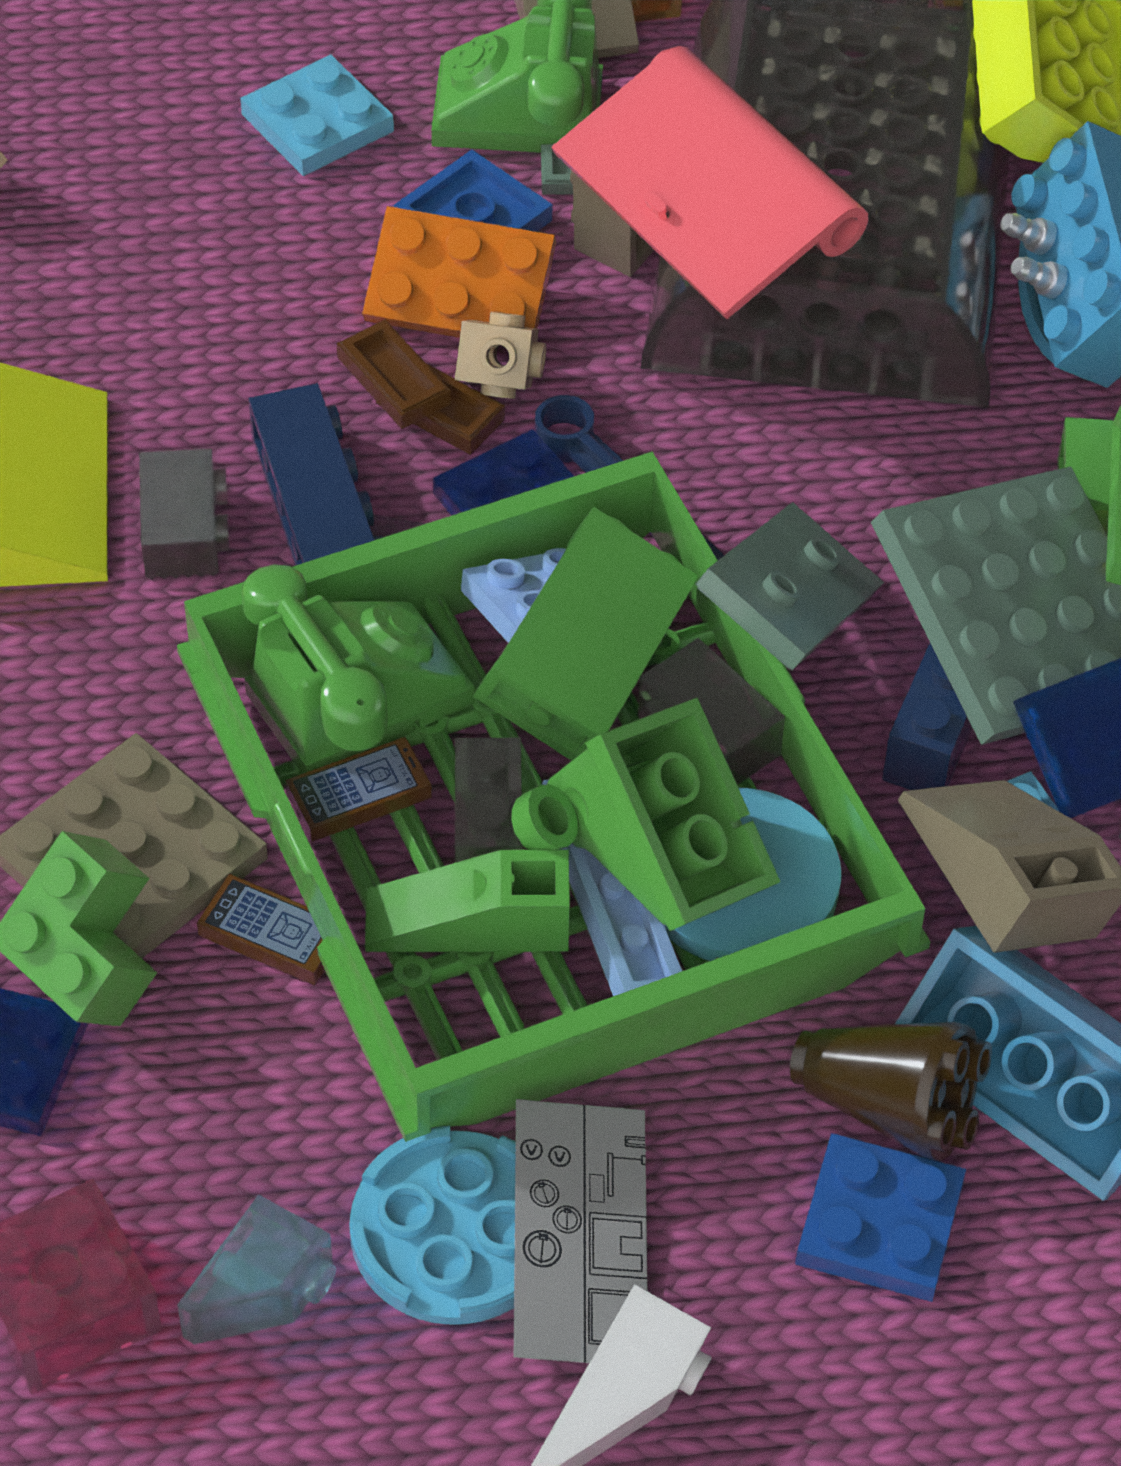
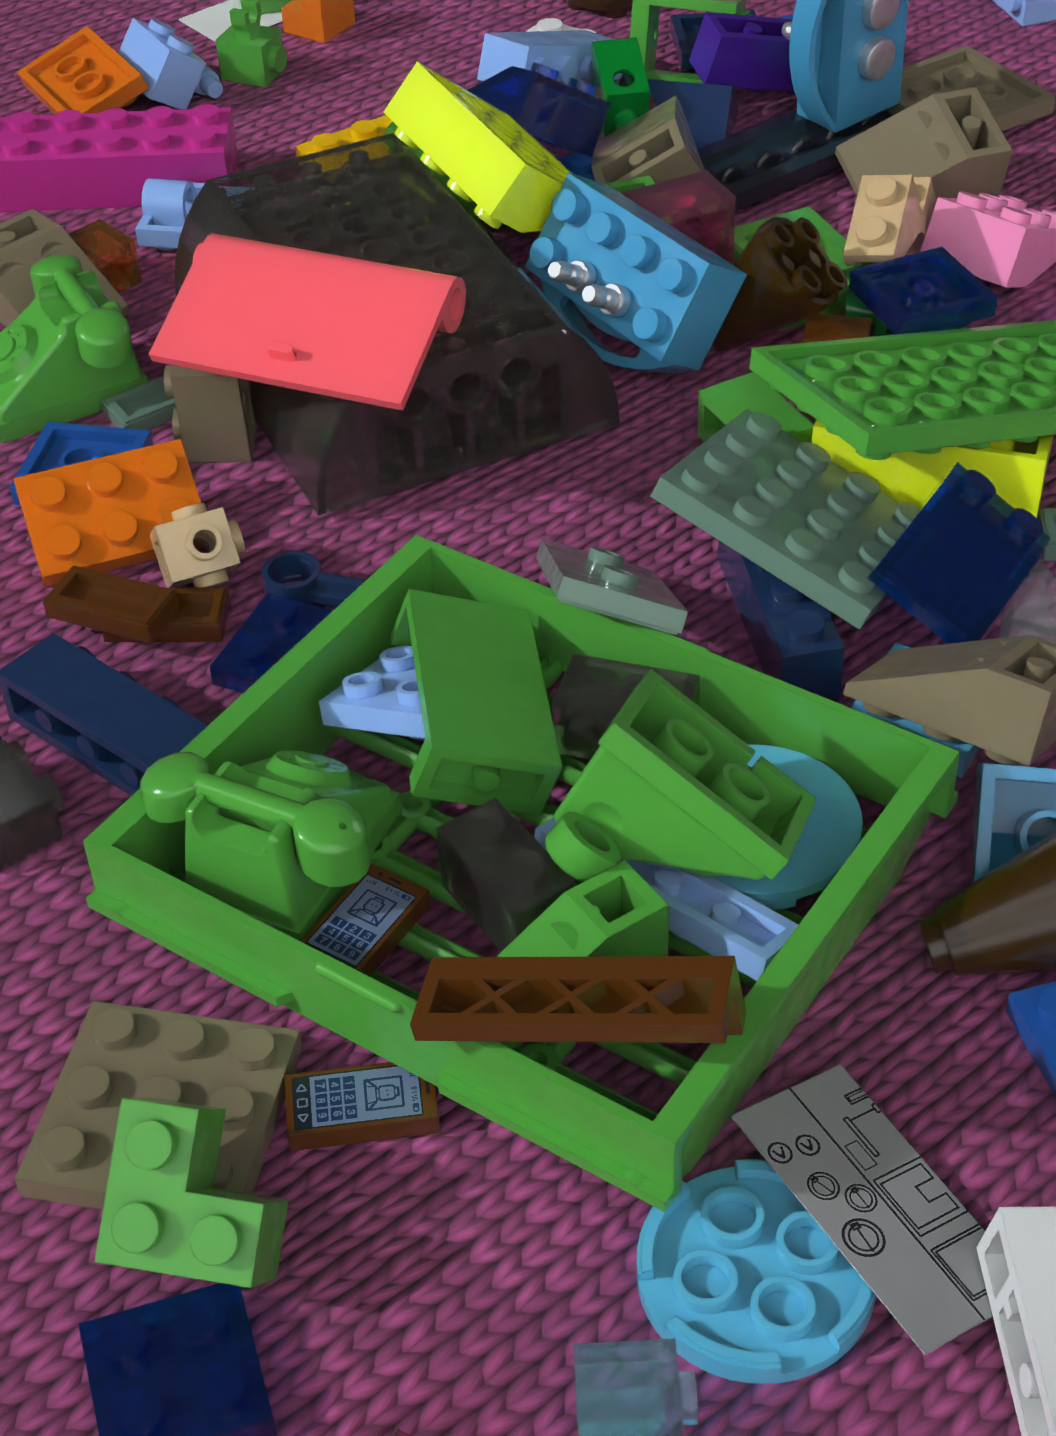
camera: 30 degrees left, 10 degrees down
(424, 933) = (580, 999): none -> reddish brown fence

